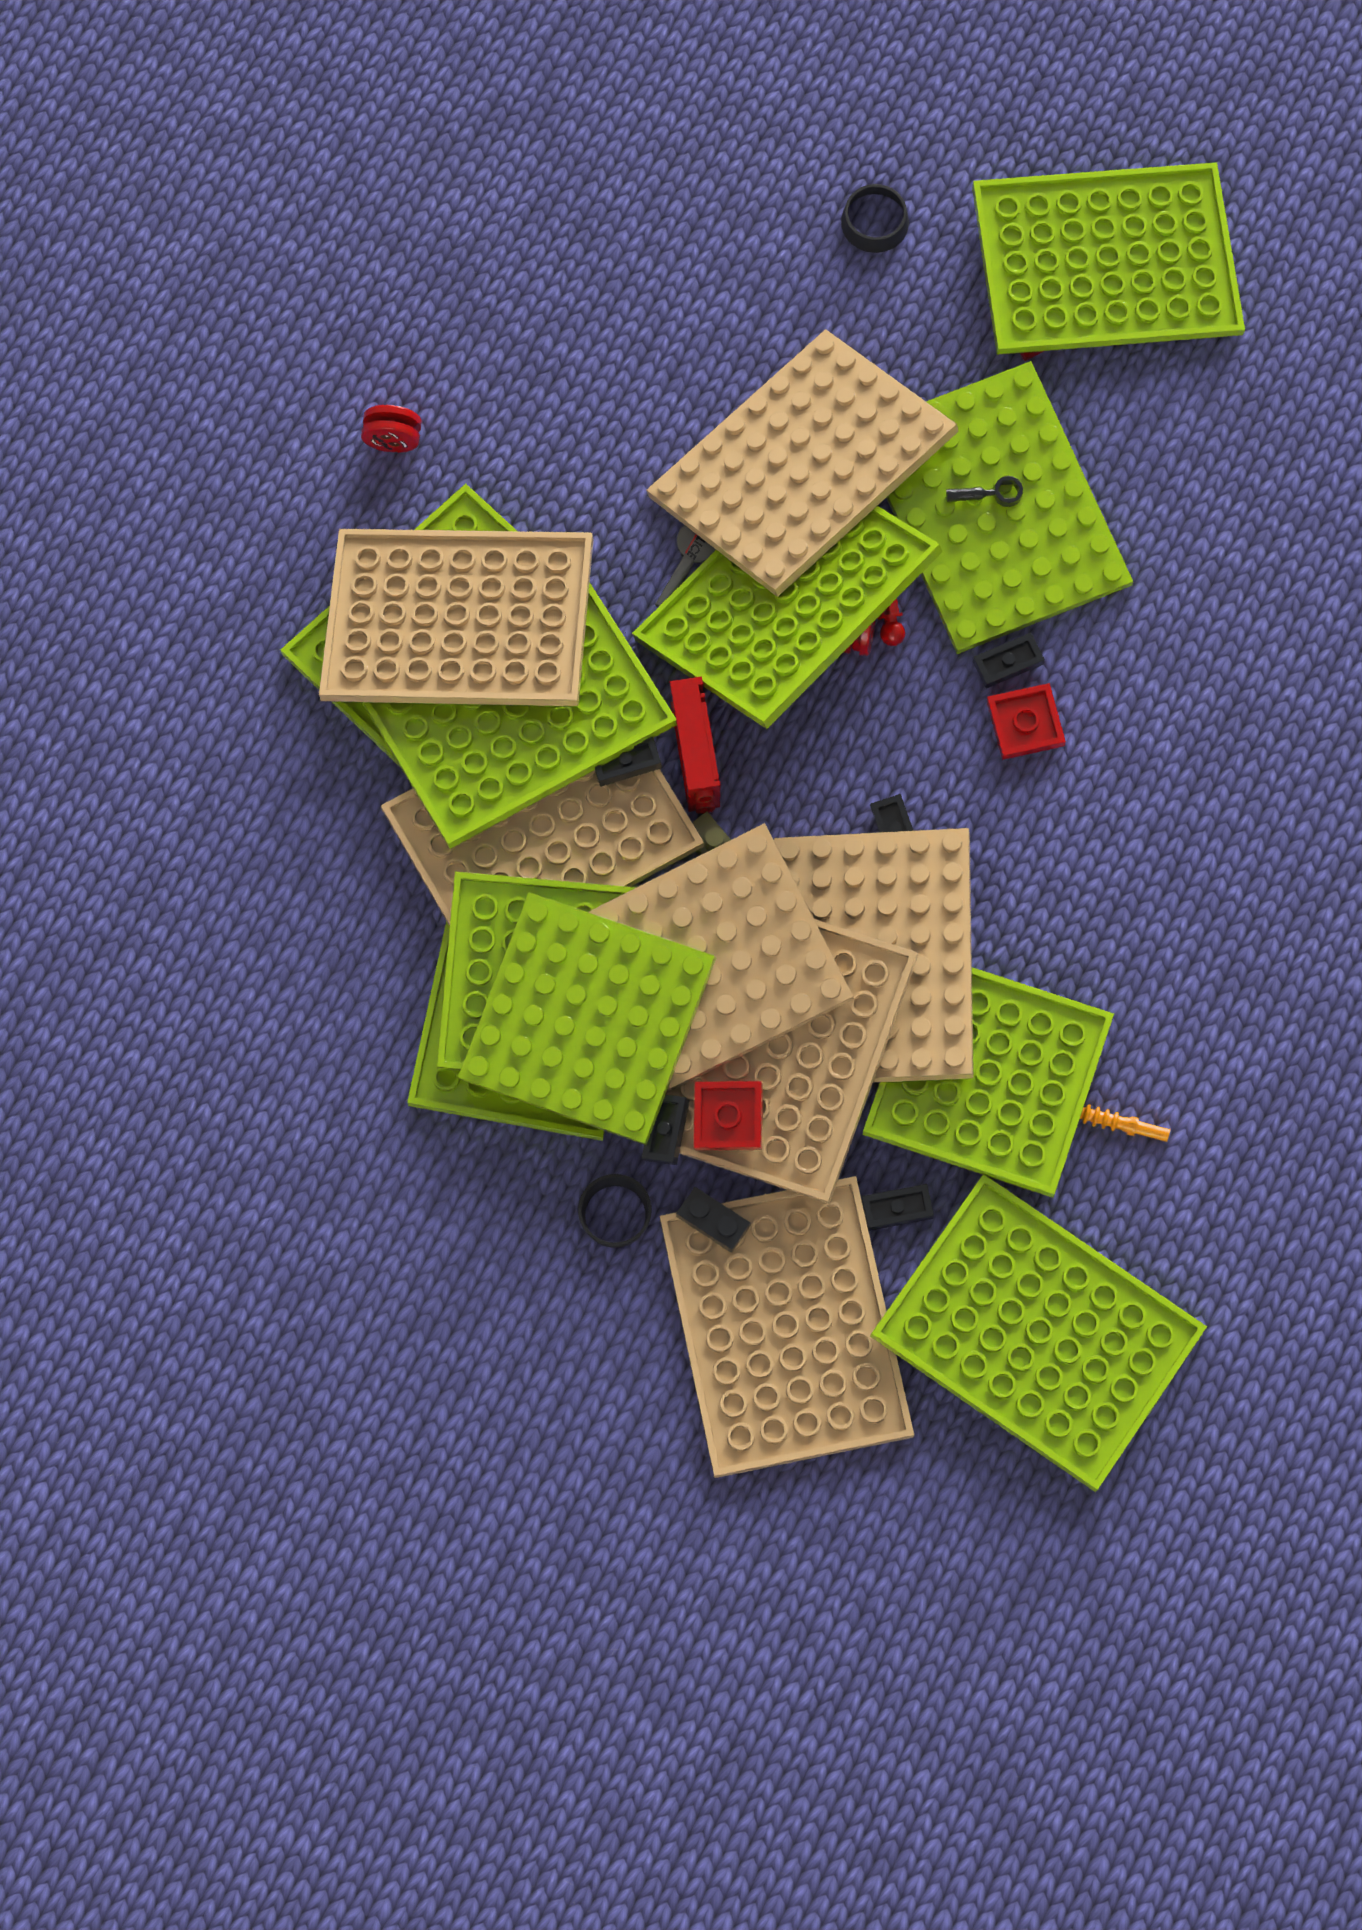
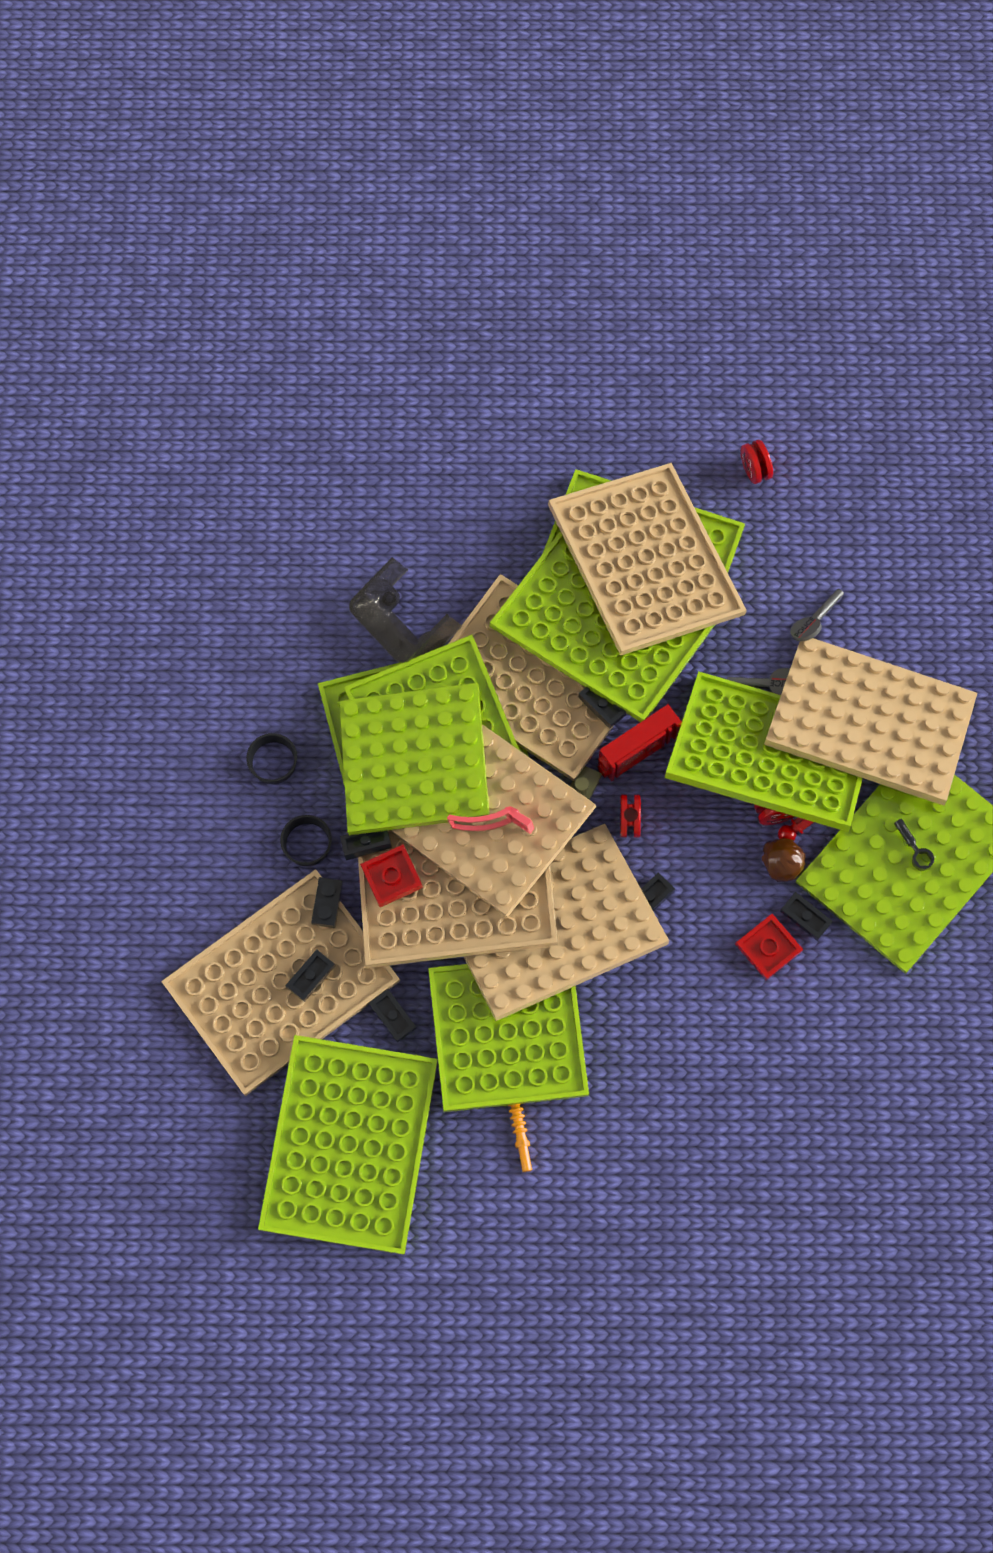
camera: 65 degrees right, 0 degrees up
(348, 987) = (374, 608): none -> clear smoke windscreen
(479, 1175) = (265, 739): none -> black tyre
(642, 476) = (811, 626): none -> dark grey piece
(733, 924) = (512, 815): none -> coral piece
(783, 800) = (630, 815): none -> red head
(801, 1281) = (310, 975): none -> black plate
(925, 650) = (783, 859): none -> reddish brown hair

